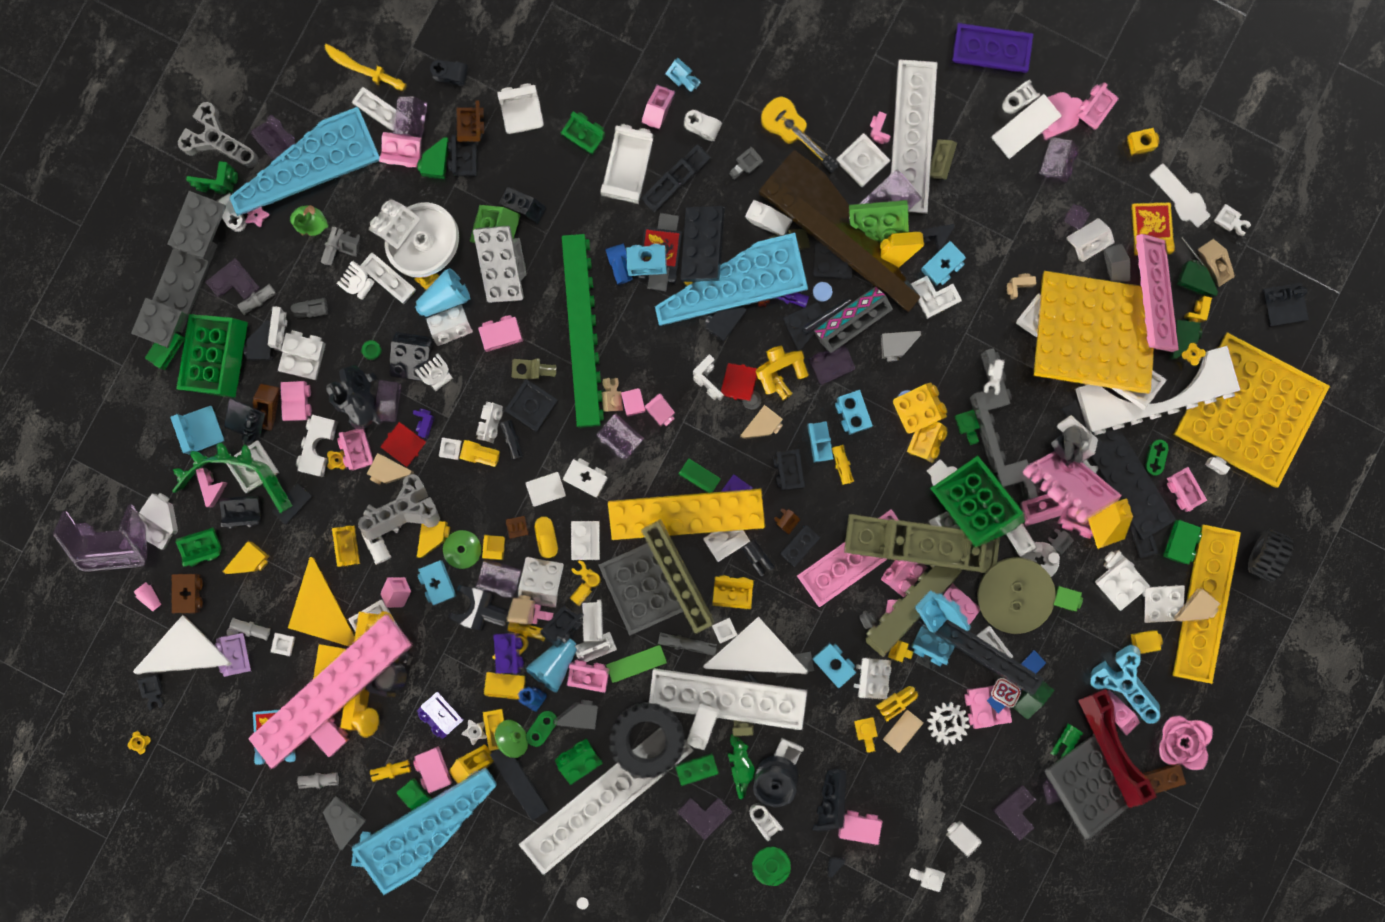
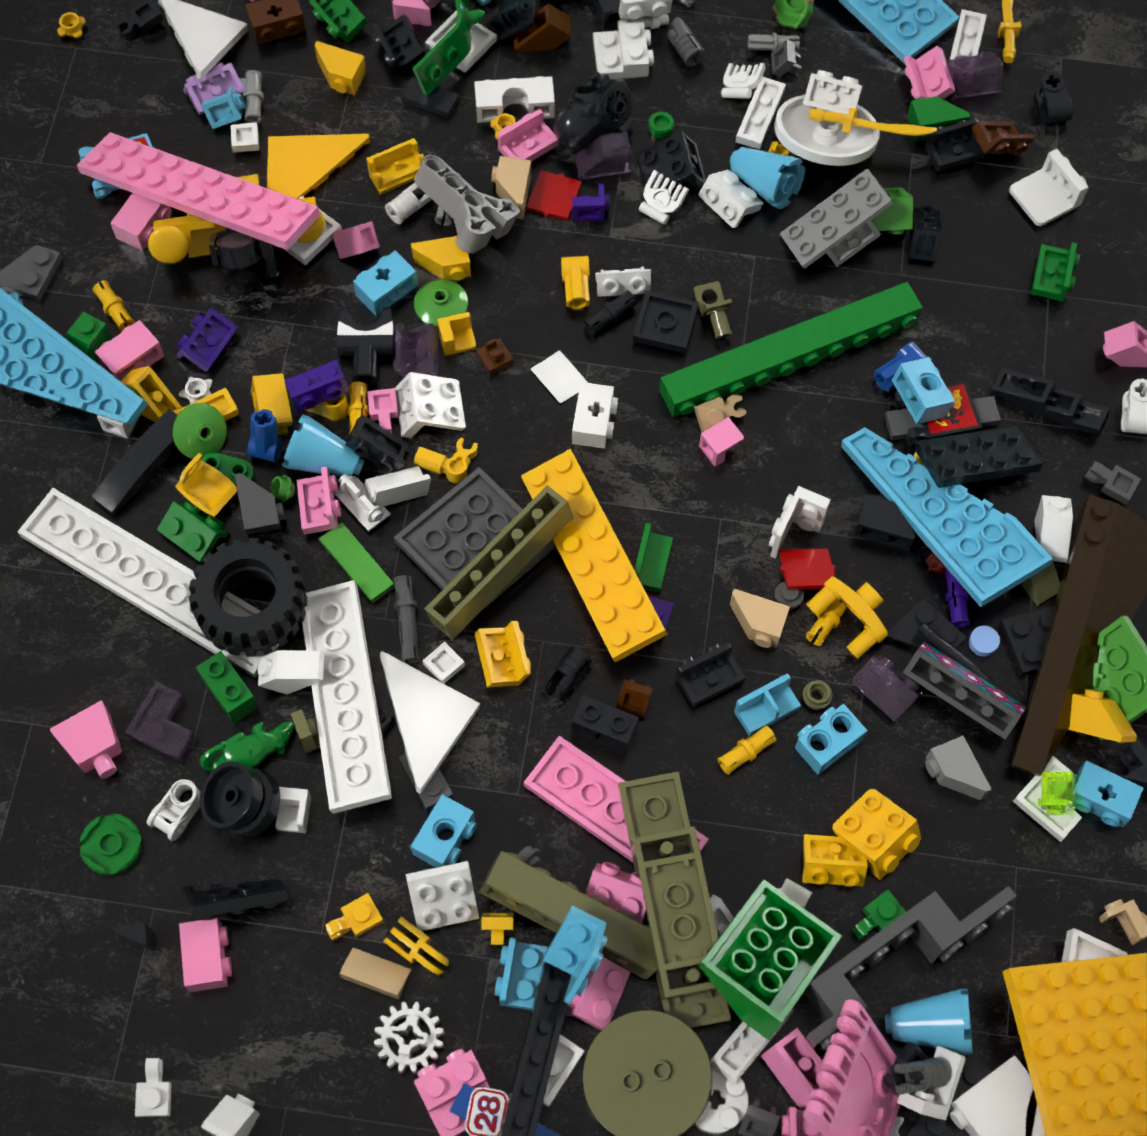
camera: 70 degrees right, 20 degrees down
(255, 652) = (224, 108): none -> medium azure bracket
(295, 401) = (562, 58): bright pink brick -> none
(318, 780) = (76, 227): light grey pin -> none
(424, 222) = (851, 120): none -> yellow sword
(450, 448) = (569, 244): white plate -> none
(500, 333) = (745, 256): bright pink brick -> none
(522, 610) = (380, 383): tan slope -> none
(546, 537) = (493, 392): yellow arm -> none
(554, 745) = (205, 486): none -> yellow piece
(569, 696) = (282, 488): none -> bright green plate
(585, 540) = (507, 445): white plate -> none
(620, 437) = (666, 440): clear purple bracket -> none
(627, 163) = (1039, 337): white panel -> none
(660, 410) = (725, 473): bright pink slope -> none
(702, 862) = (90, 739): none -> bright pink torso
(725, 542) = (572, 623): white plate -> none
(826, 403) = (820, 687): none -> olive plate
(937, 293) = (1057, 792): none -> clear neon green bracket
(995, 371) = (980, 906): white plate -> none
(1041, 421) = (934, 1022): none -> medium azure cone

